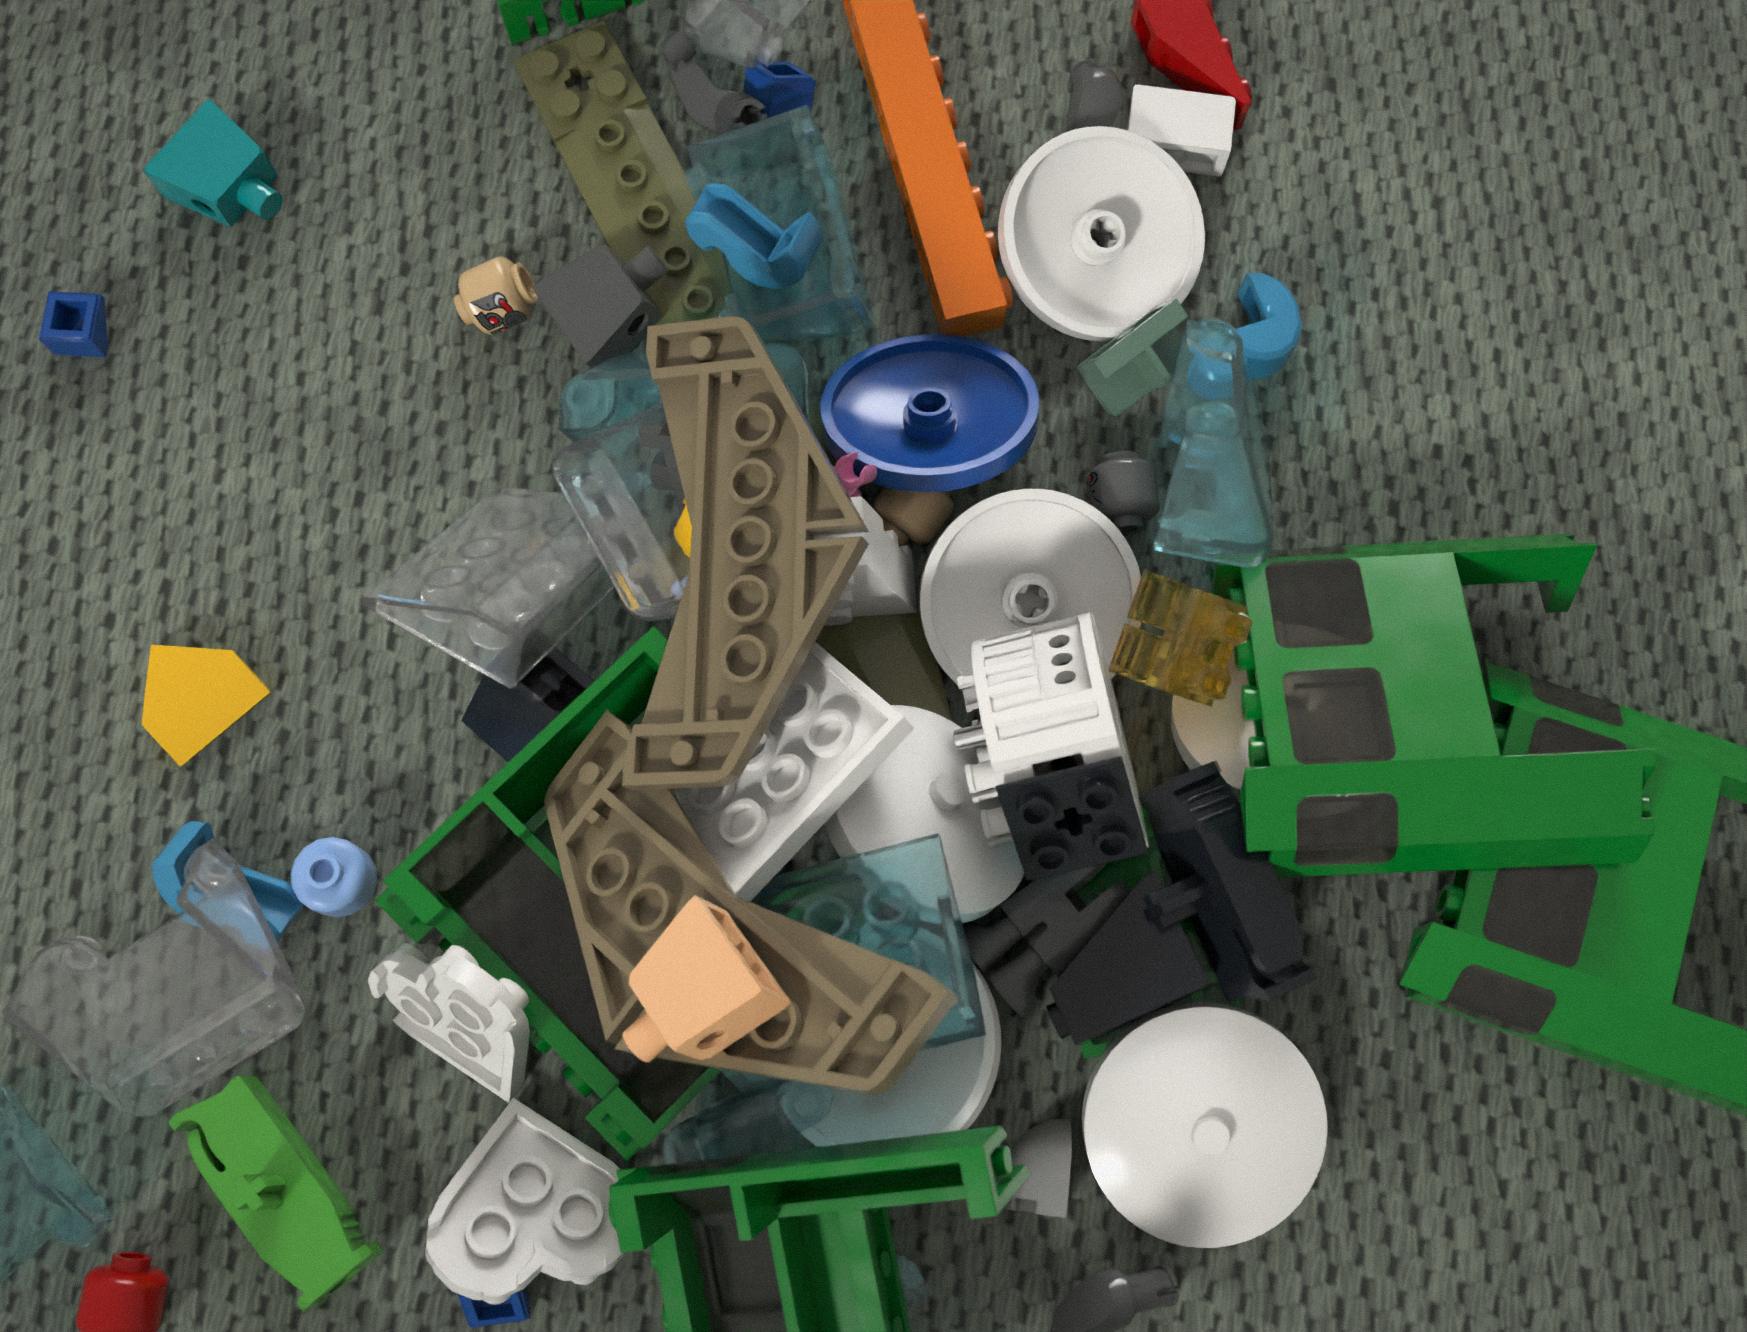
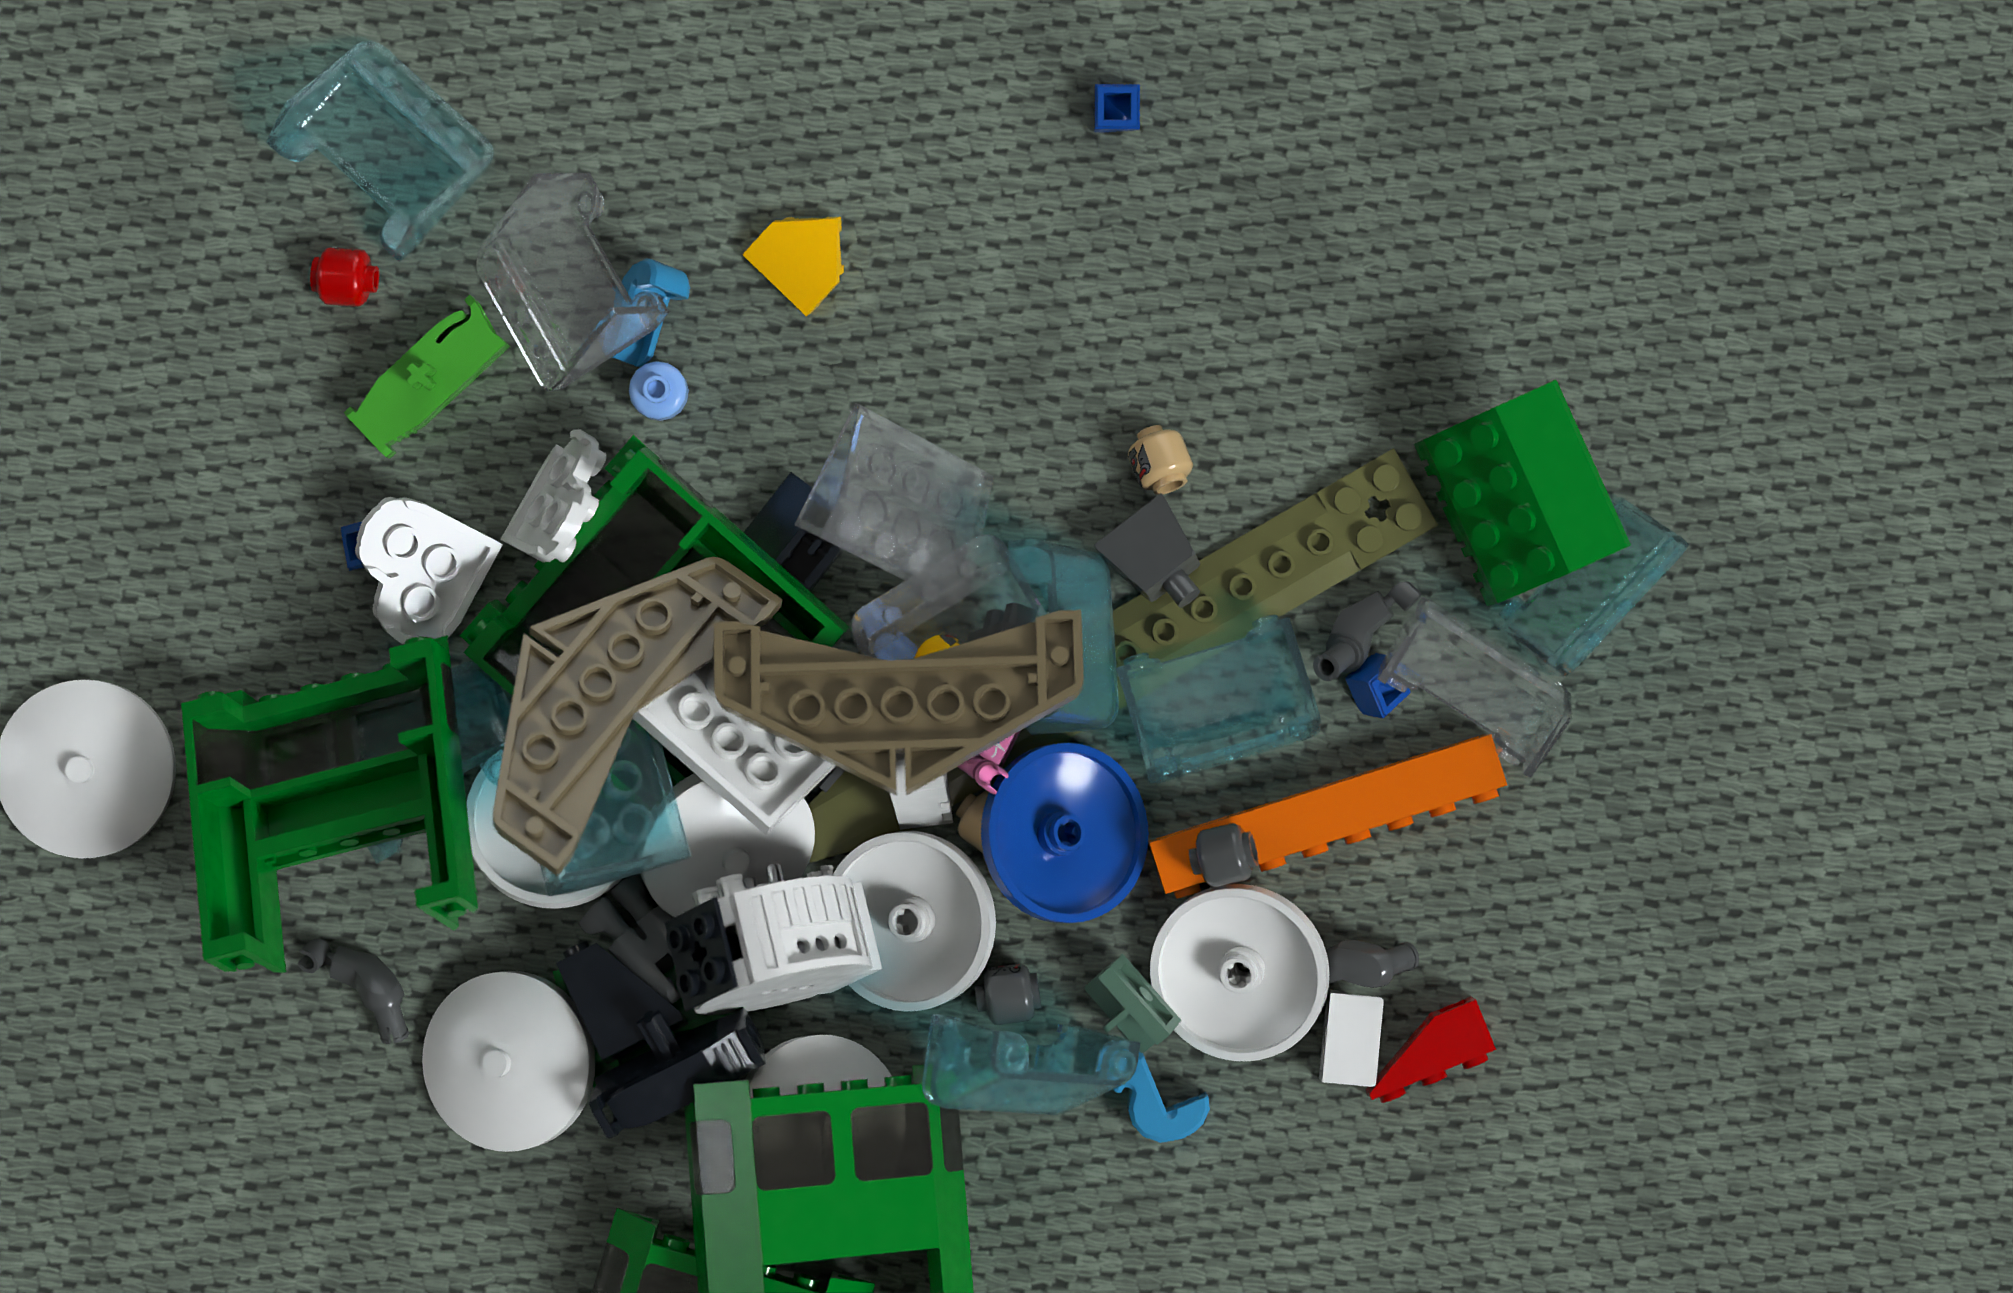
camera: 85 degrees right, 15 degrees up
(215, 169) = (1266, 207): teal torso -> none
(700, 987) = (562, 696): light nougat torso -> none
(751, 239) = (1209, 678): dark azure animal -> none
(963, 226) = (1224, 855): none -> dark grey head
(1047, 1155) = (473, 942): light grey brick -> none
(1195, 643) = (870, 1037): clear yellow hips -> none

